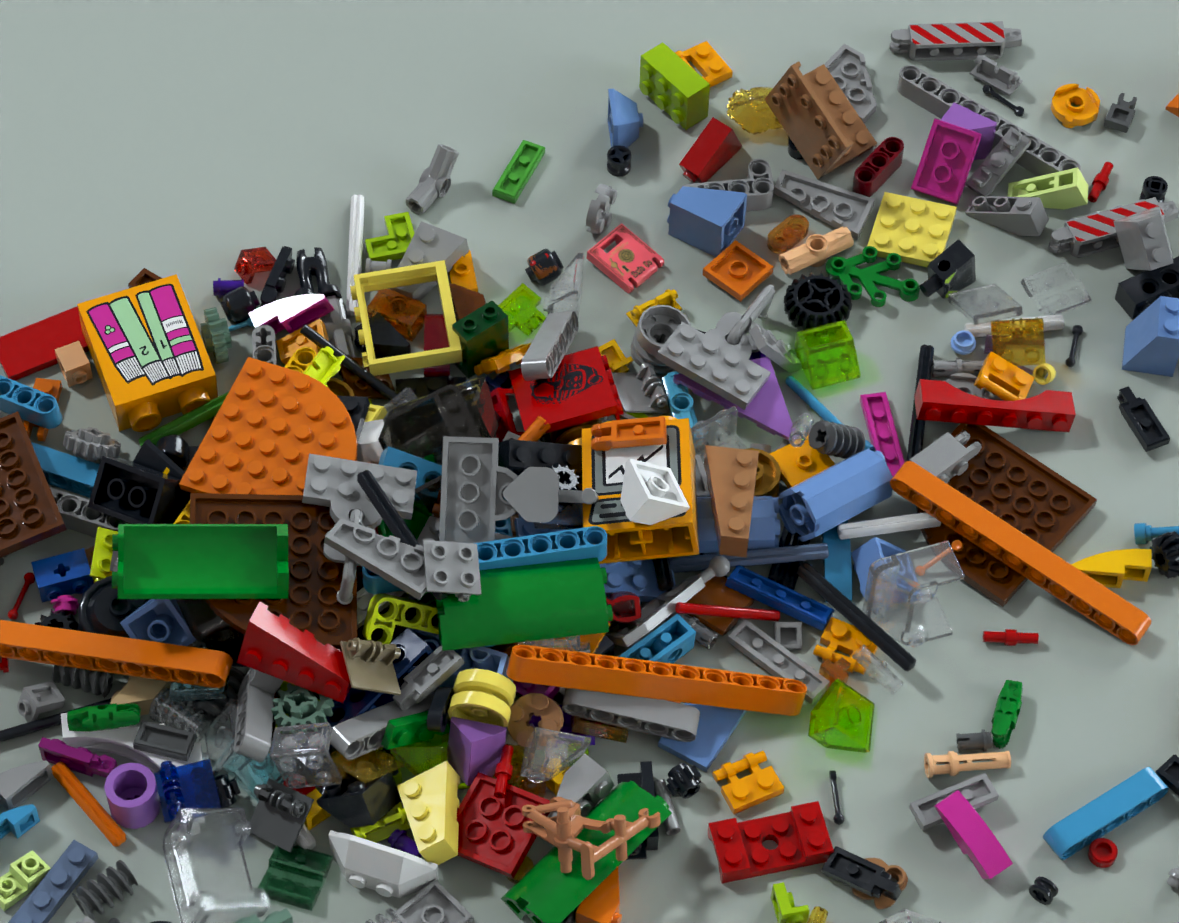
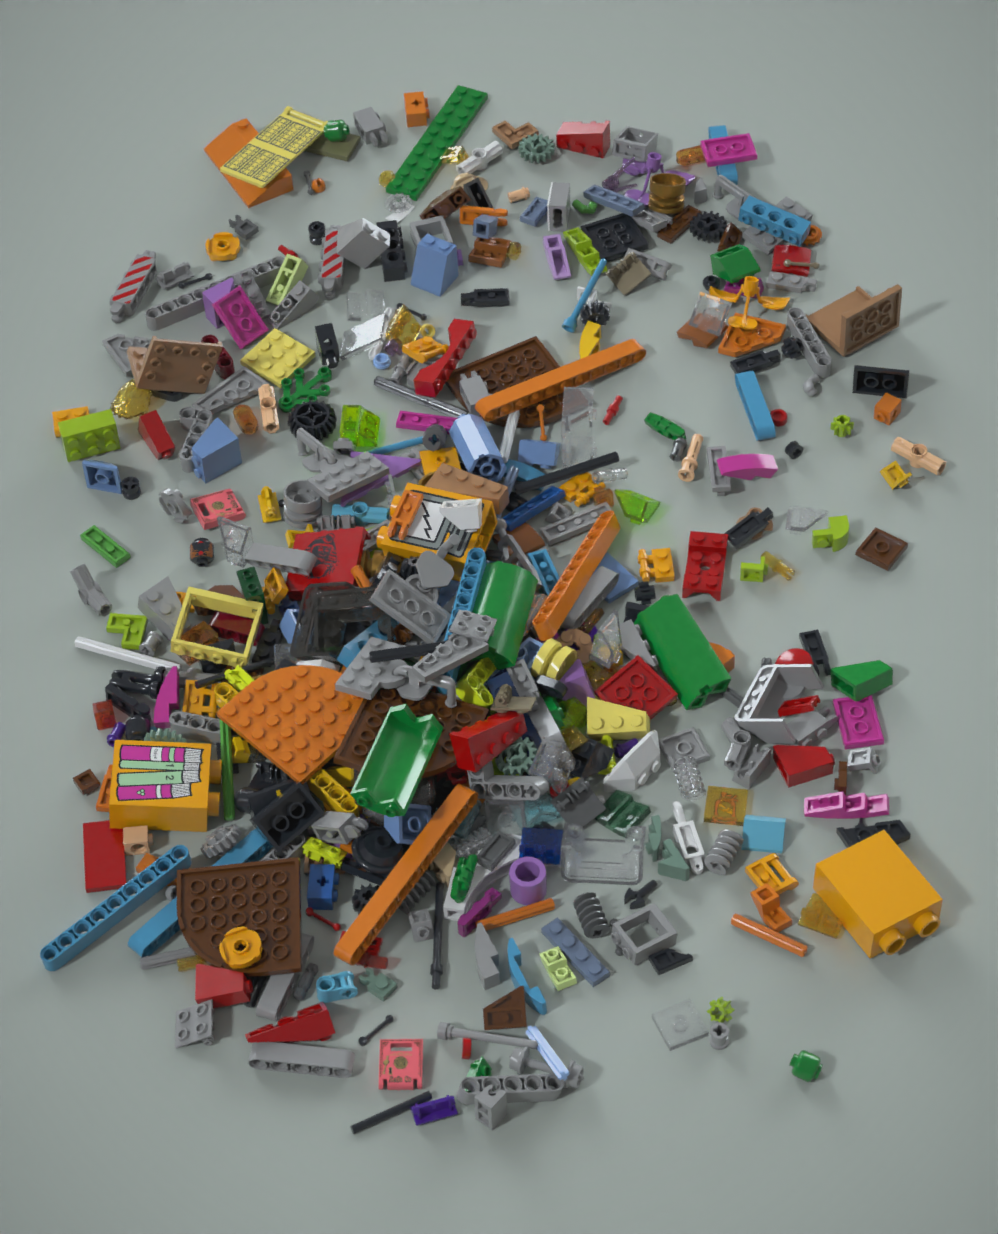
camera: 65 degrees left, 5 degrees down
(67, 603) = (348, 891): dark pink plate -> none
(503, 771) = (603, 674): red bar -> none
(522, 310) = (226, 574): clear neon green hinge -> none
(565, 827) = (676, 641): nougat piece -> none
(726, 611) = (534, 532): red bar -> none
(738, 270) = (262, 453): orange plate -> none
(800, 430) = (418, 451): clear pin -> none
(838, 817) = (671, 524): black hinge -> none

